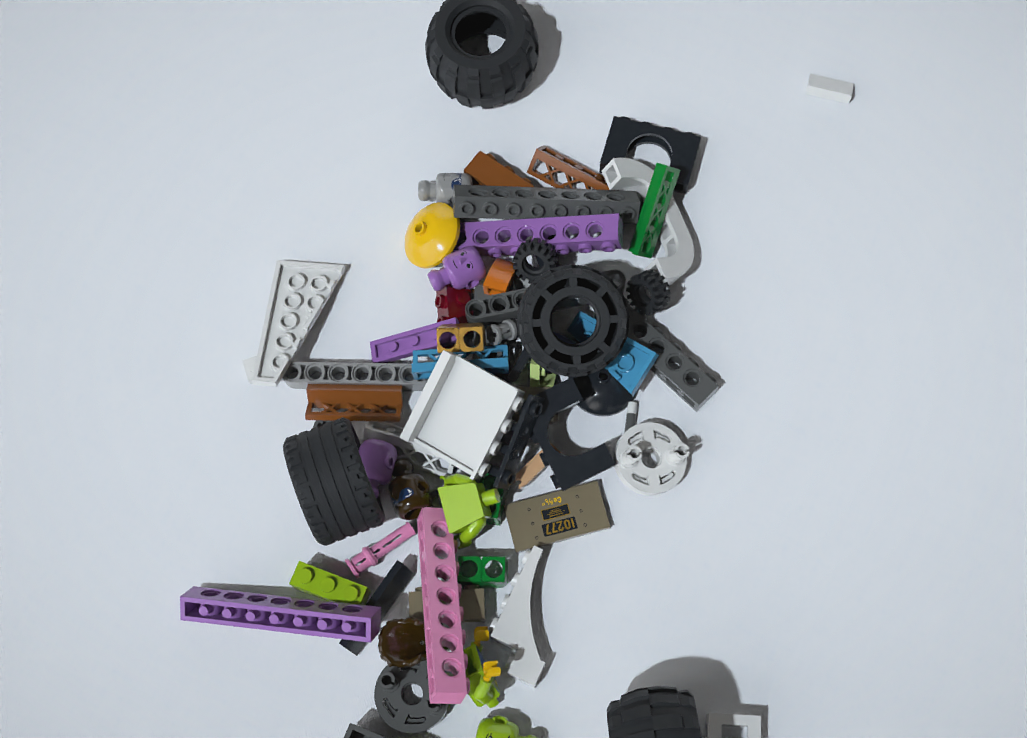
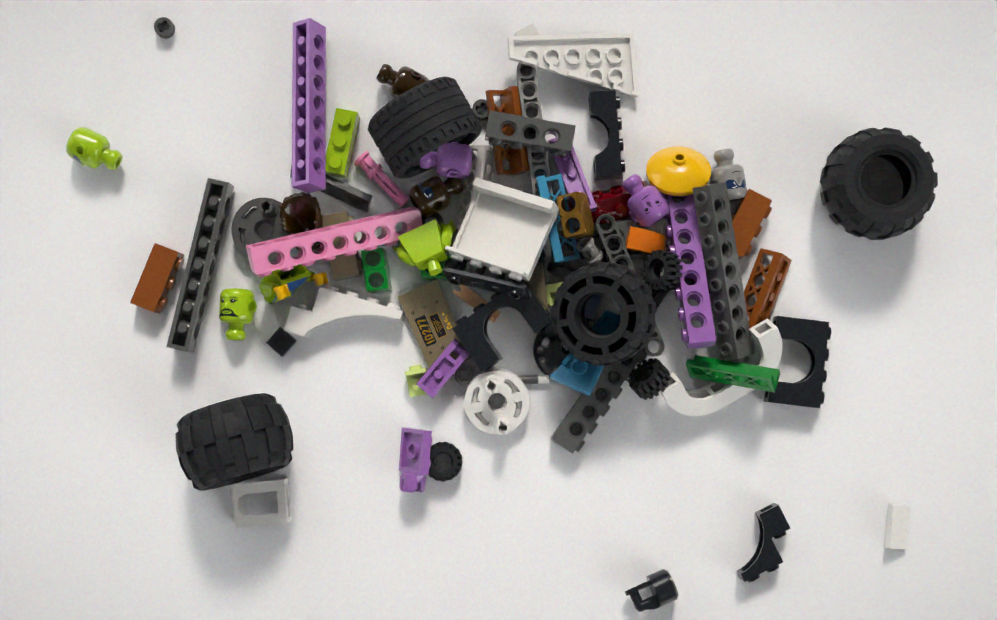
camera: 75 degrees right, 15 degrees up
(278, 506) = (400, 81): none -> dark brown piece
(351, 300) = (603, 108): none -> black arch
(369, 340) = (563, 132): none -> dark grey brick
(546, 694) = (281, 342): none -> black plate
(606, 511) = (442, 369): none -> medium lavender plate
(614, 544) = (413, 376): none -> yellowish green bracket
(615, 484) = (457, 375): none -> dark grey bush
(702, 557) = (414, 459): none -> medium lavender plate
(715, 516) = (456, 461): none -> black tyre
(848, 211) = (766, 557): none -> black arch
(876, 317) = (662, 589): none -> black piece

